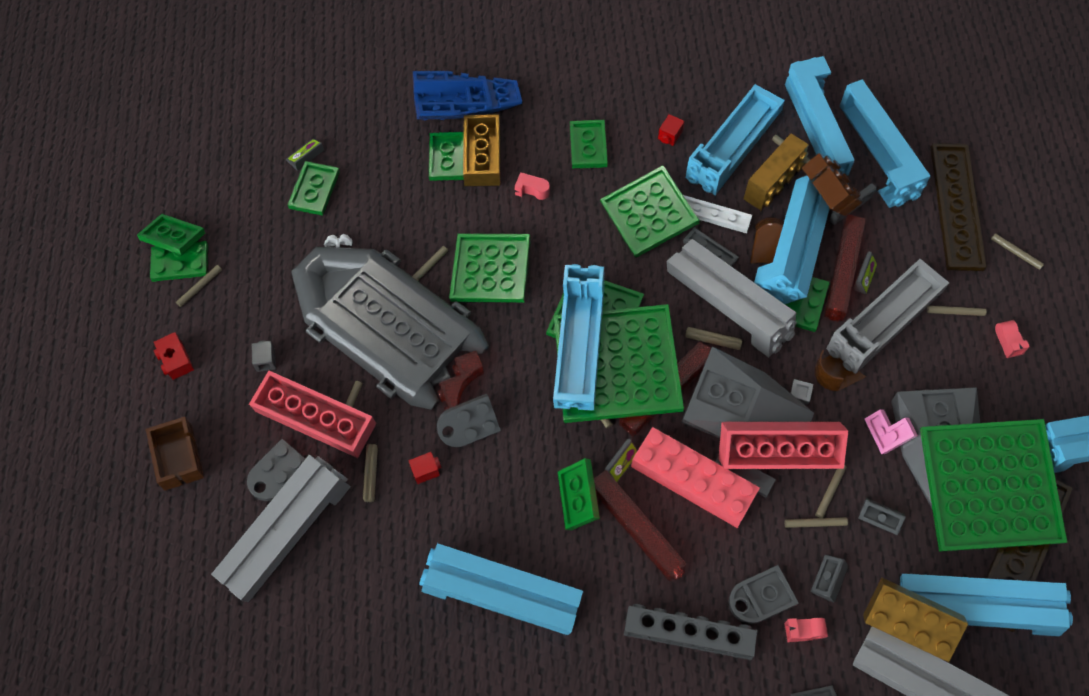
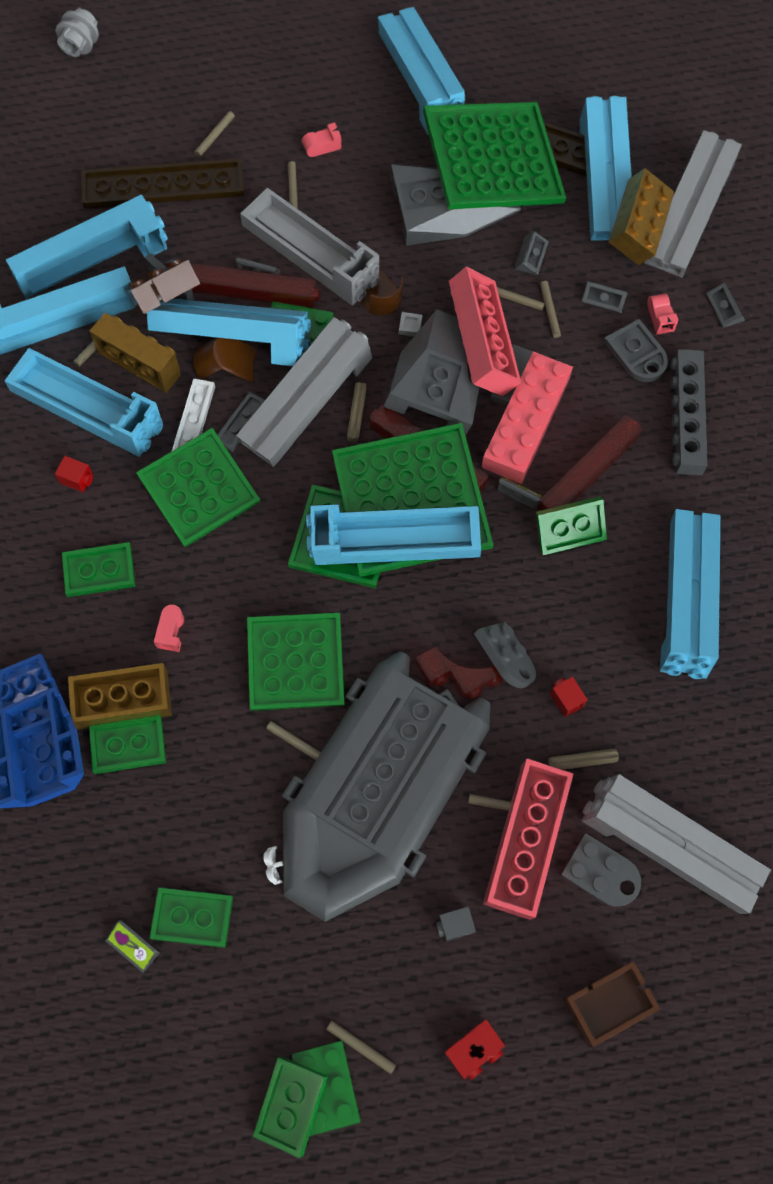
camera: 100 degrees left, 5 degrees up
(887, 435) = (451, 243): bright pink plate -> none

